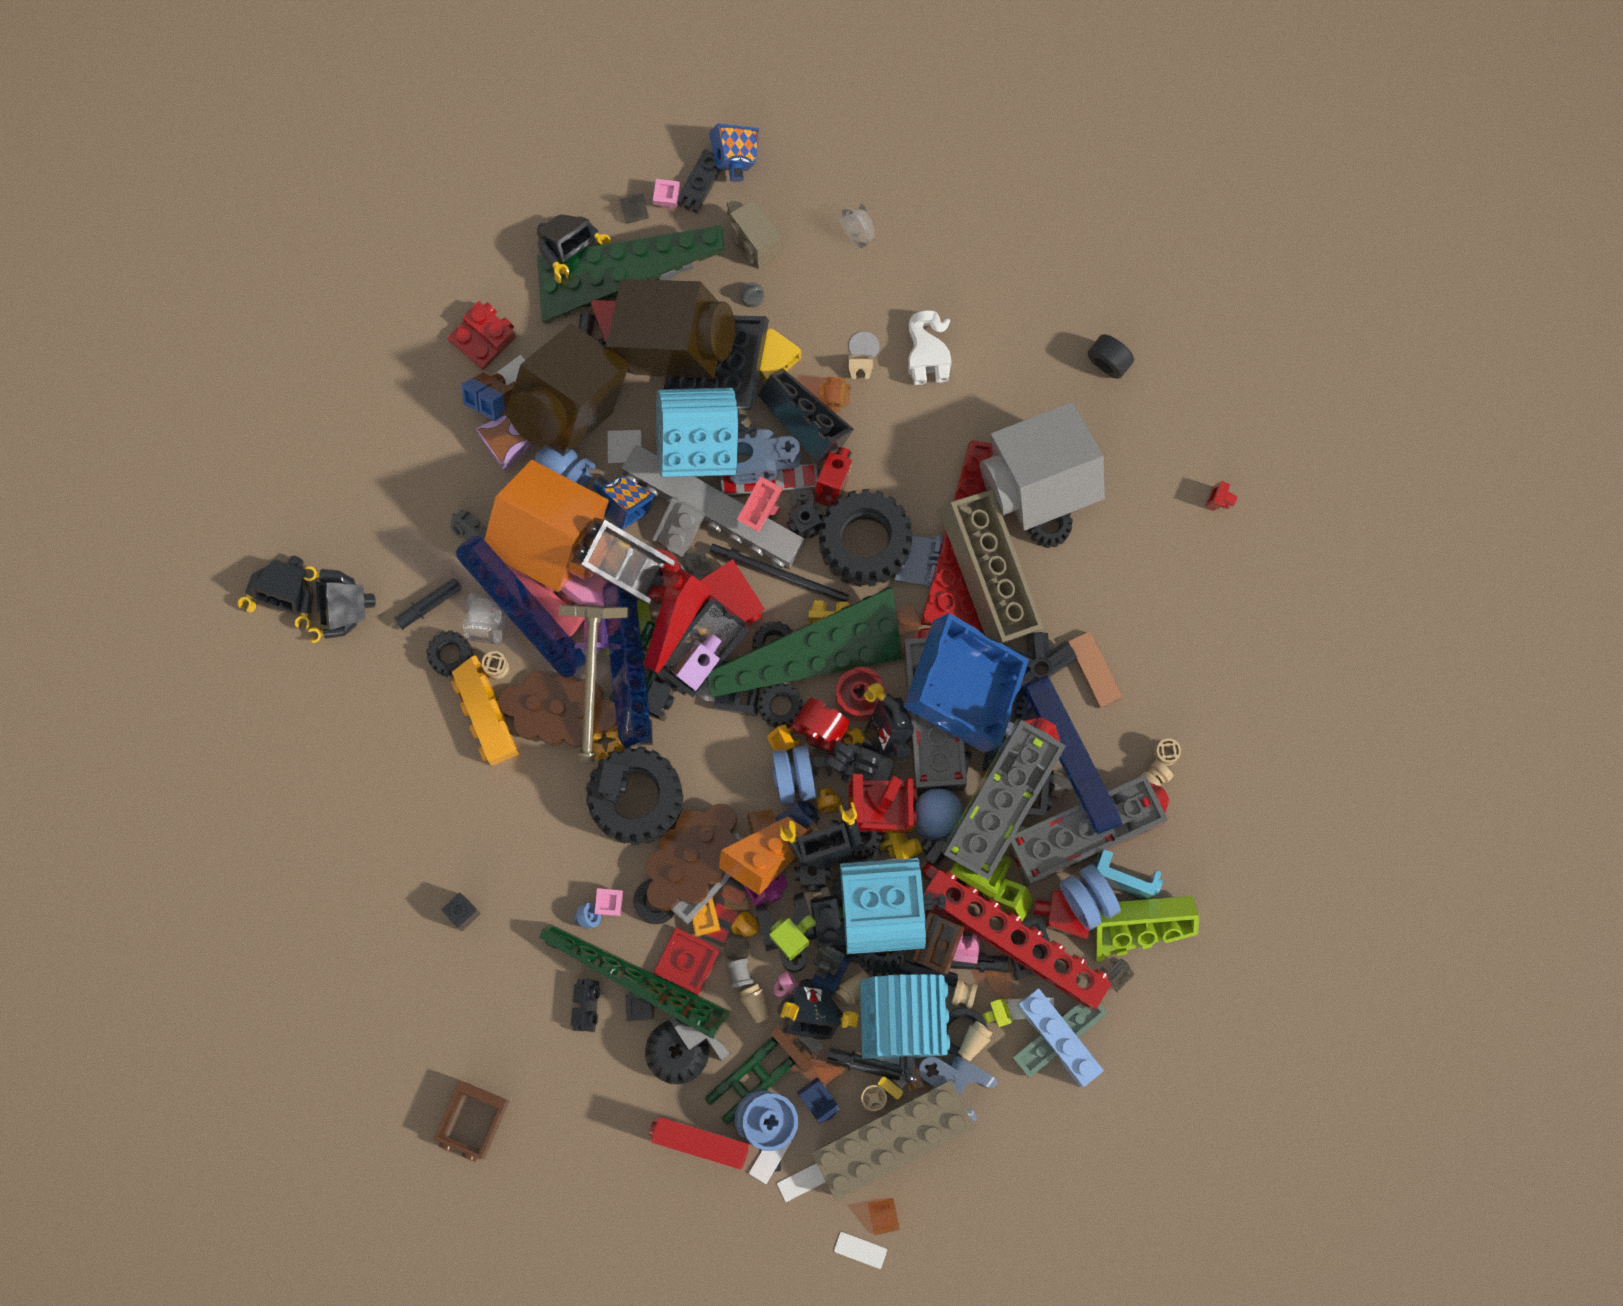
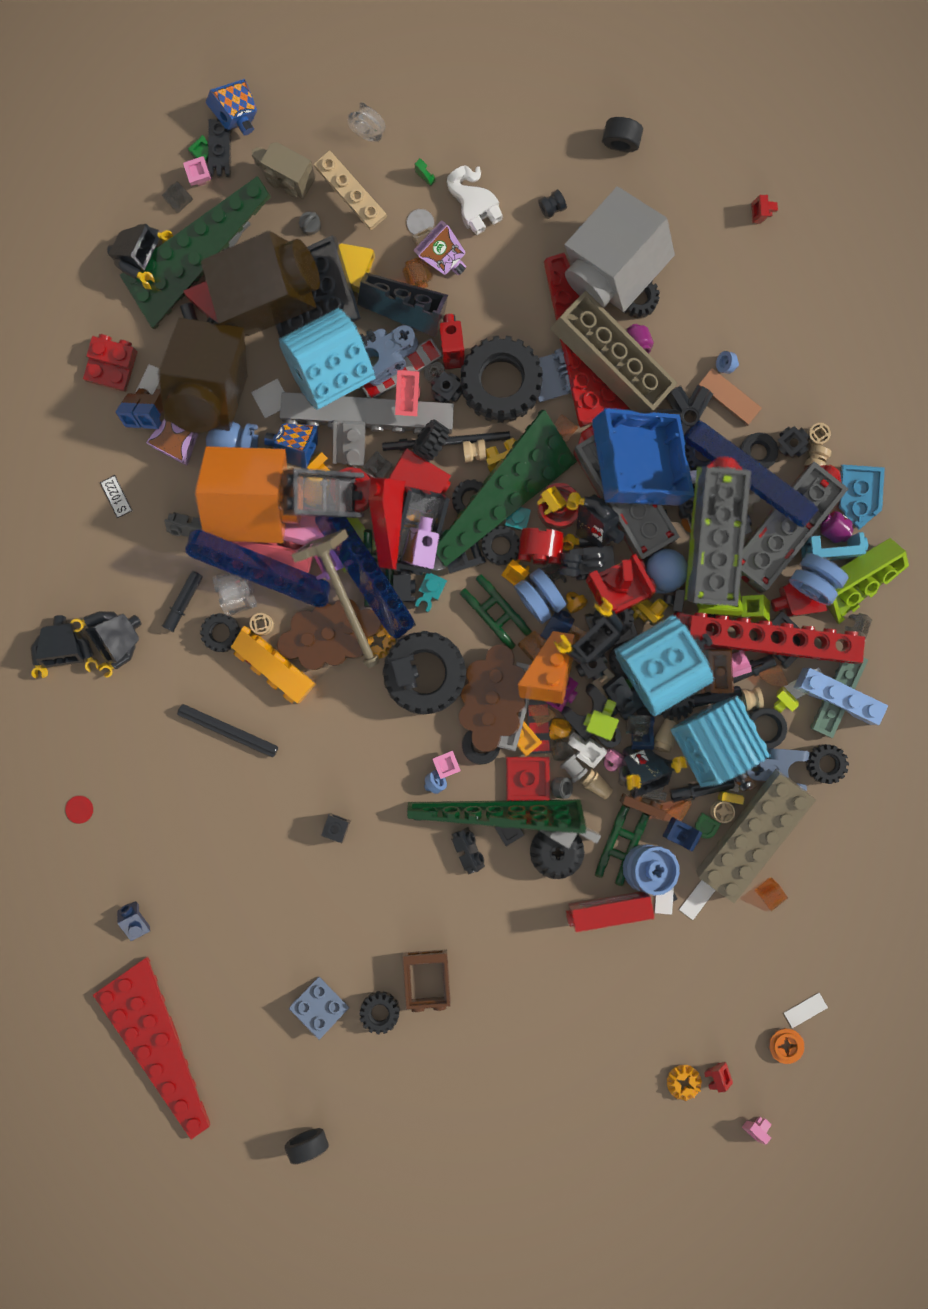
camera: 25 degrees left, 10 degrees up
(155, 1016) = (143, 1022): none -> red wing
(201, 904) = (132, 921): none -> dark blue bracket
(210, 763) = (79, 809): none -> red sticker
(252, 1233) = (306, 1146): none -> black tyre
(343, 1093) = (318, 1008): none -> sand blue hinge
(388, 1126) = (379, 999): none -> black tyre
(403, 756) = (227, 730): none -> black axle
(418, 468) = (116, 496): none -> white sticker
(637, 530) = (317, 461): none -> light orange tile
(680, 173) = (199, 148): none -> green tile
(687, 714) = (431, 588): none -> teal plate
(717, 988) = (562, 787): none -> dark grey tile
(734, 784) = (481, 610): none -> dark green piece
(760, 563) = (430, 440): none -> black tyre
(765, 964) = (588, 751): none -> white plate
(802, 596) = (474, 451): none -> tan wheel
(807, 282) = (350, 190): none -> tan plate
(813, 687) = (518, 519): none -> teal plate
(850, 1107) = (707, 826): none -> green tile
(854, 680) = (553, 499): none -> yellow tile
(860, 1250) = (766, 927): white sticker -> none
(869, 383) = (442, 250): none -> torso
(890, 295) = (420, 169): none -> green tile
(975, 1040) = (780, 731): tan cone -> none
(1006, 390) = (552, 204): none -> black wheel
(1025, 1097) = (839, 768): none -> black tyre
(1031, 564) = (642, 336): none -> magenta head
(1108, 633) = (727, 362): none -> medium blue tile
(1110, 732) = (765, 440): none -> black tyre
(1131, 740) = (786, 437): none -> black brick
(1141, 857) = (836, 527): none -> magenta head
(1185, 835) = (864, 493): none -> dark azure tile

